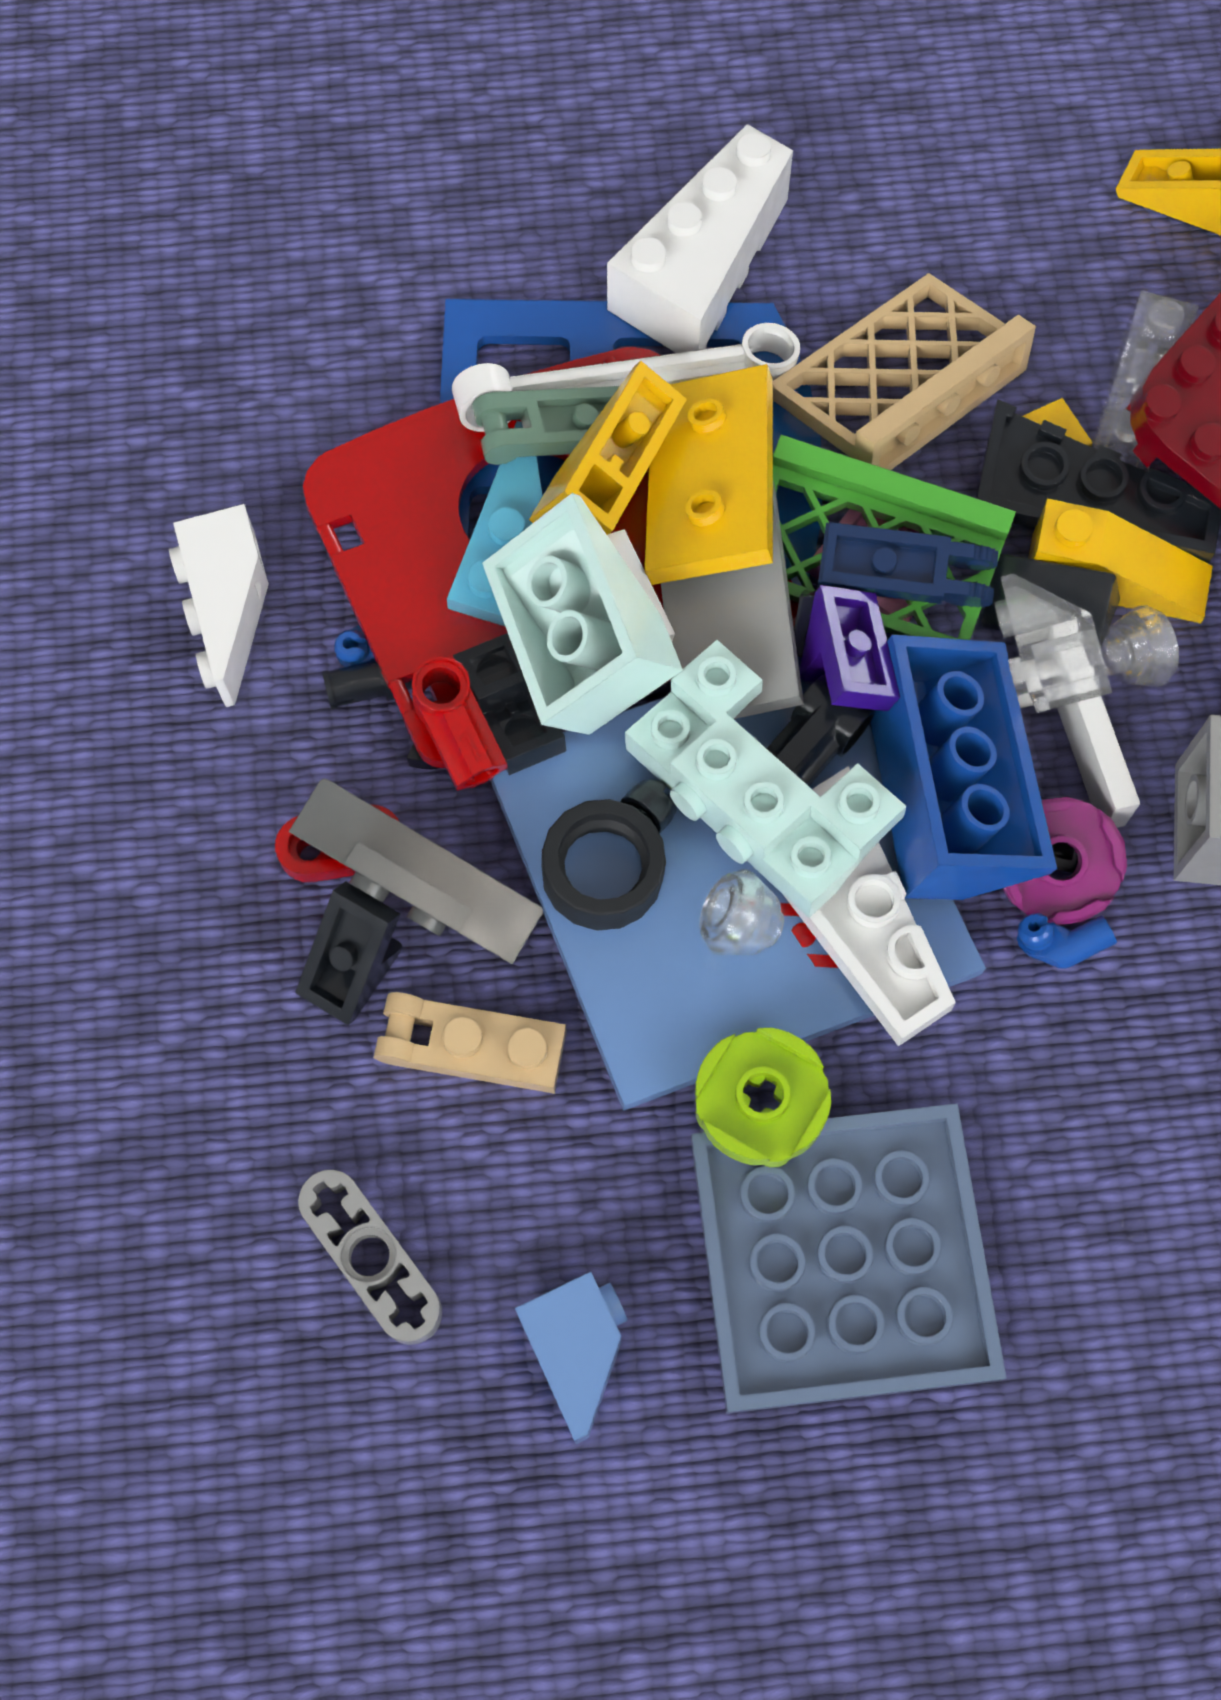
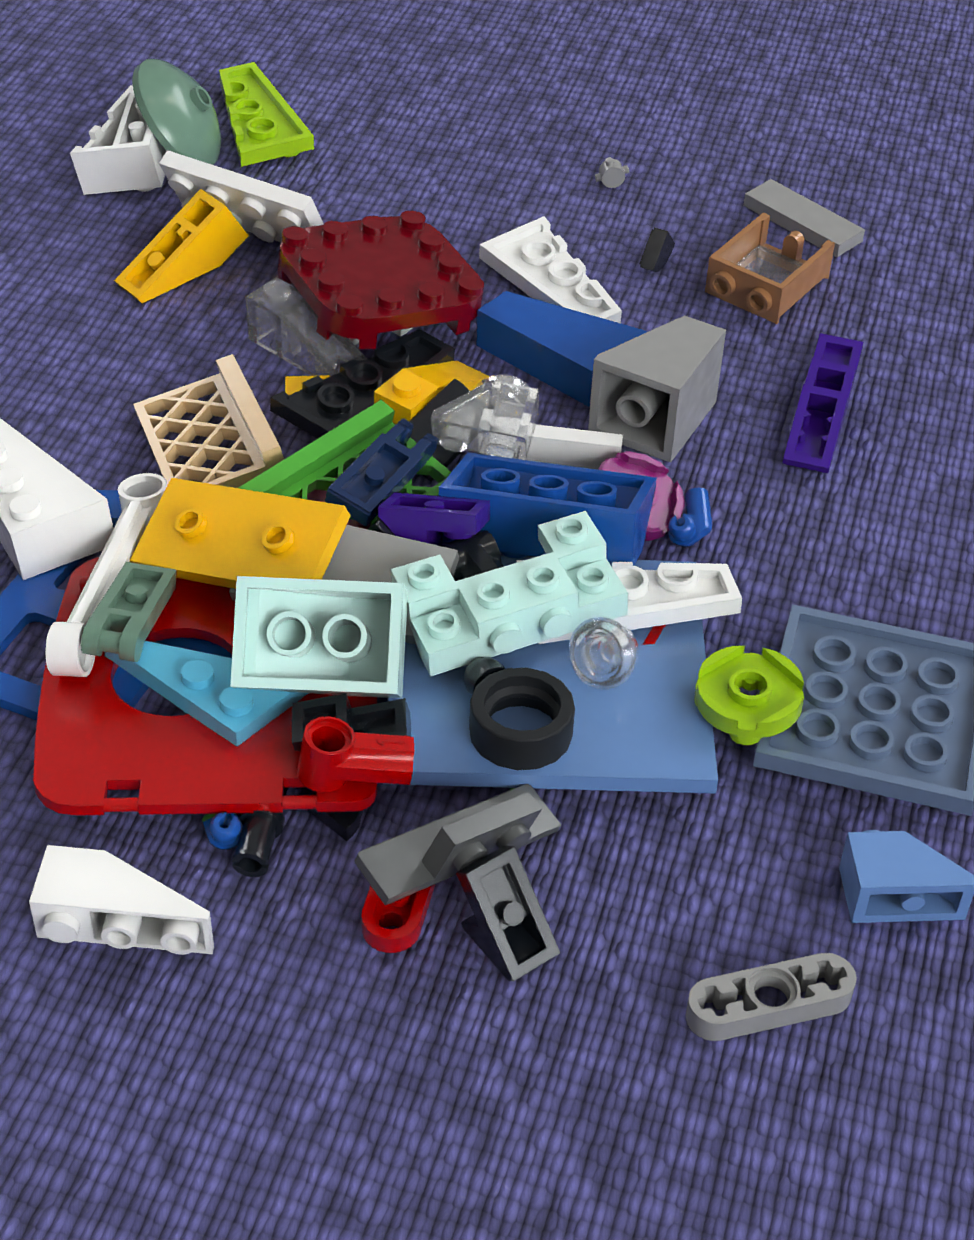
camera: 70 degrees left, 25 degrees down
(472, 1043) = (616, 872): tan plate -> none
(617, 448) = (190, 584): yellow slope -> none

